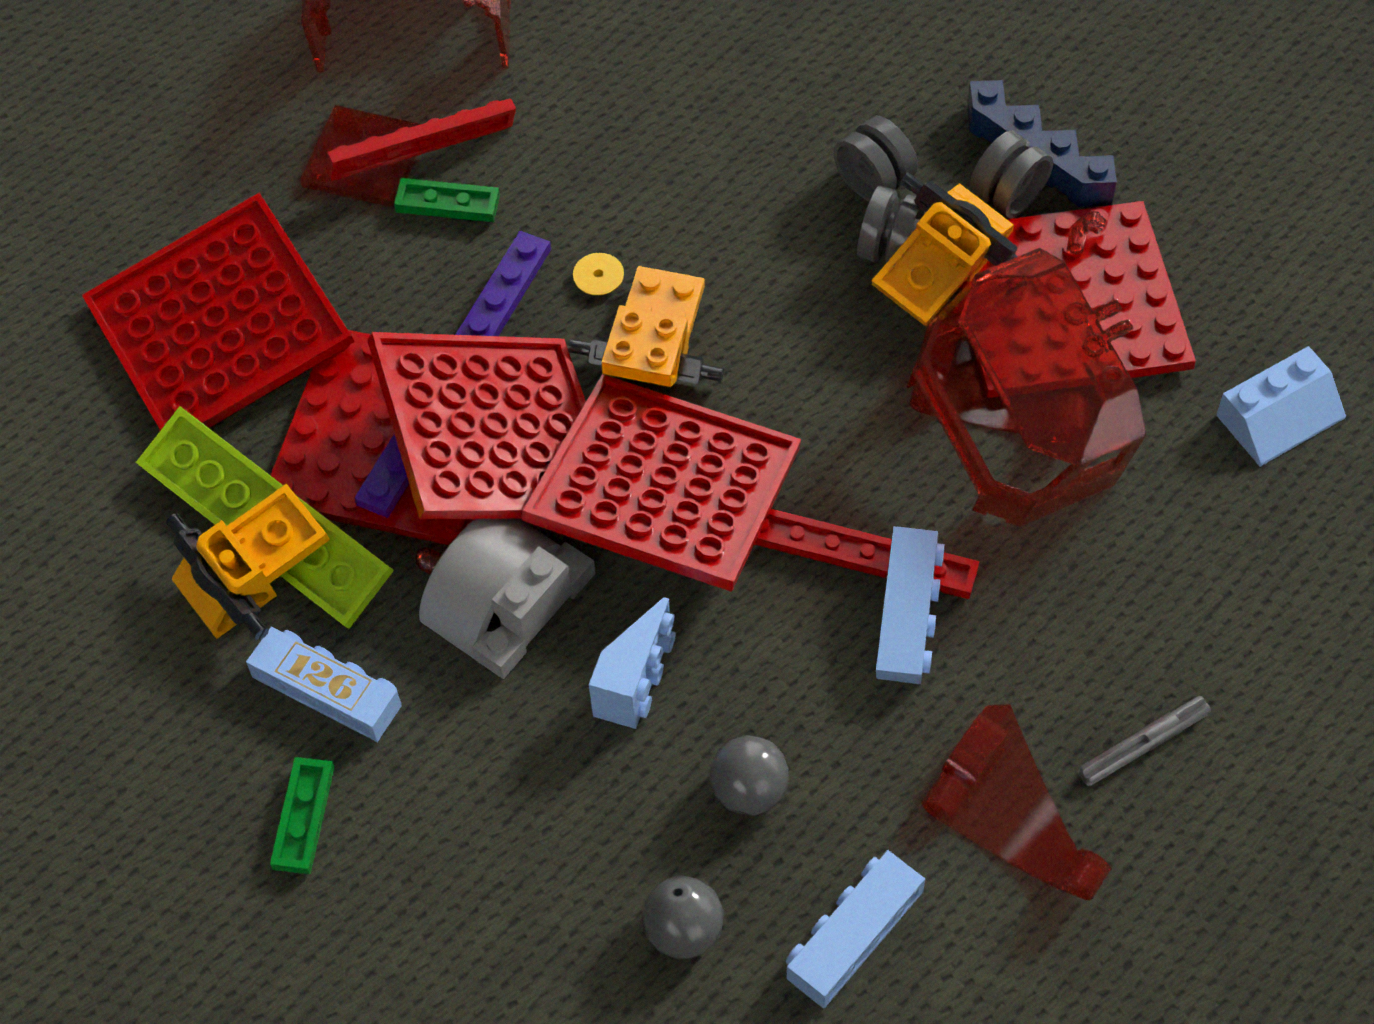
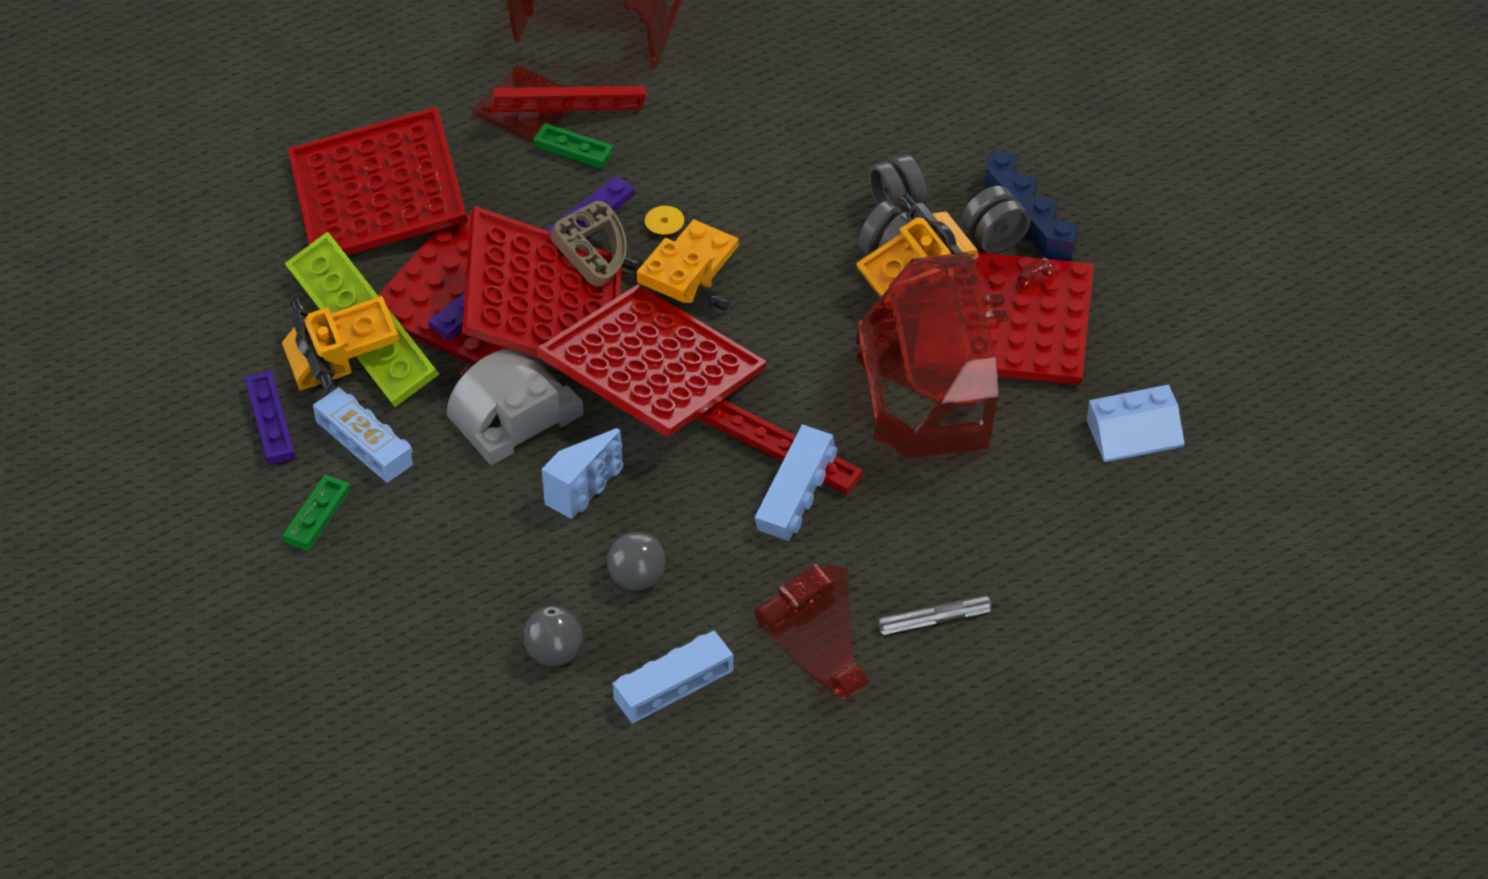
camera: 15 degrees right, 10 degrees down
(191, 691) = (269, 417): none -> dark purple plate
(507, 337) = (576, 240): none -> dark tan beam

